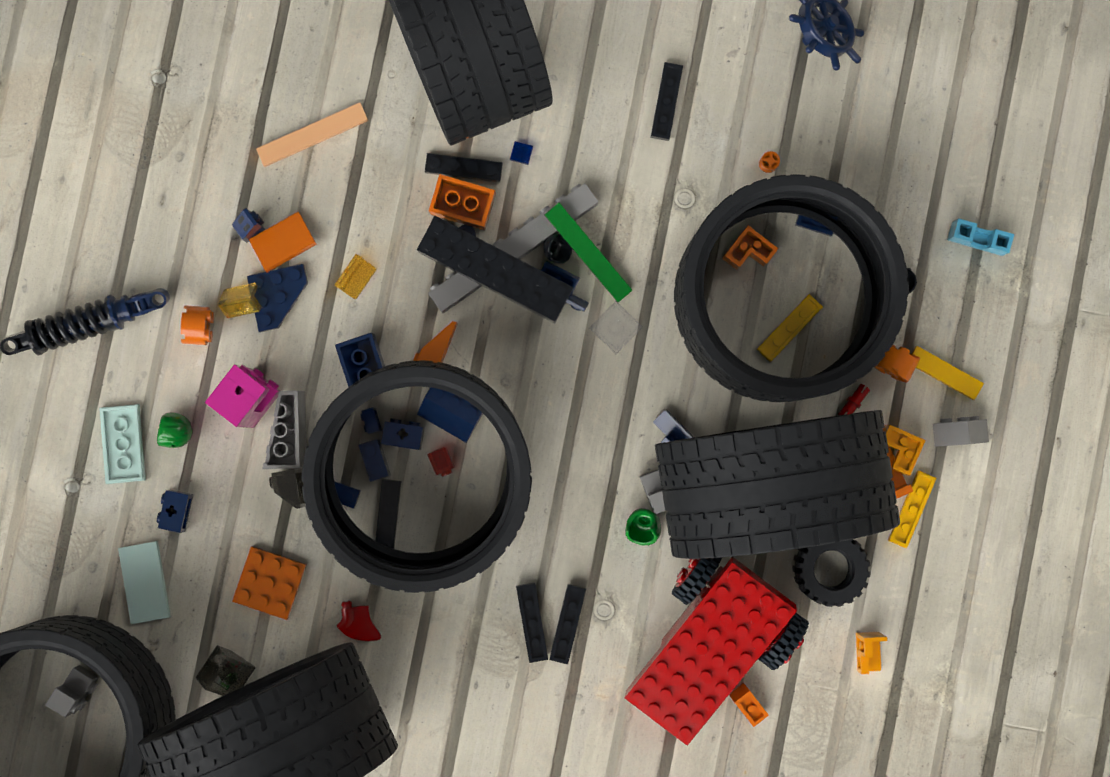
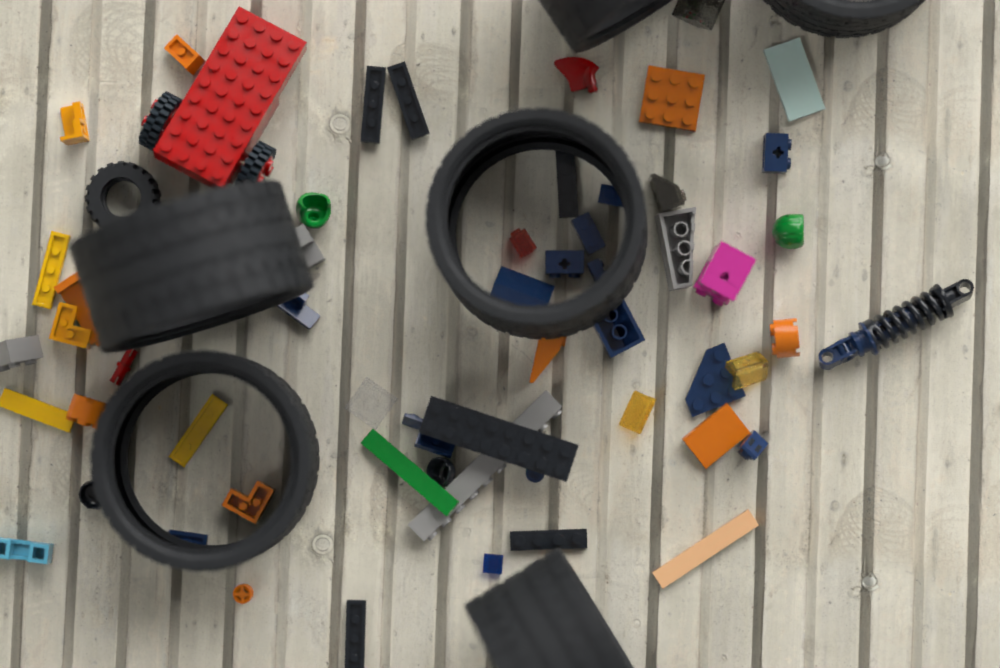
camera: 170 degrees right, 0 degrees up
(122, 444) = (839, 210): light aqua tile -> none
(462, 202) = (543, 503): orange brick -> none

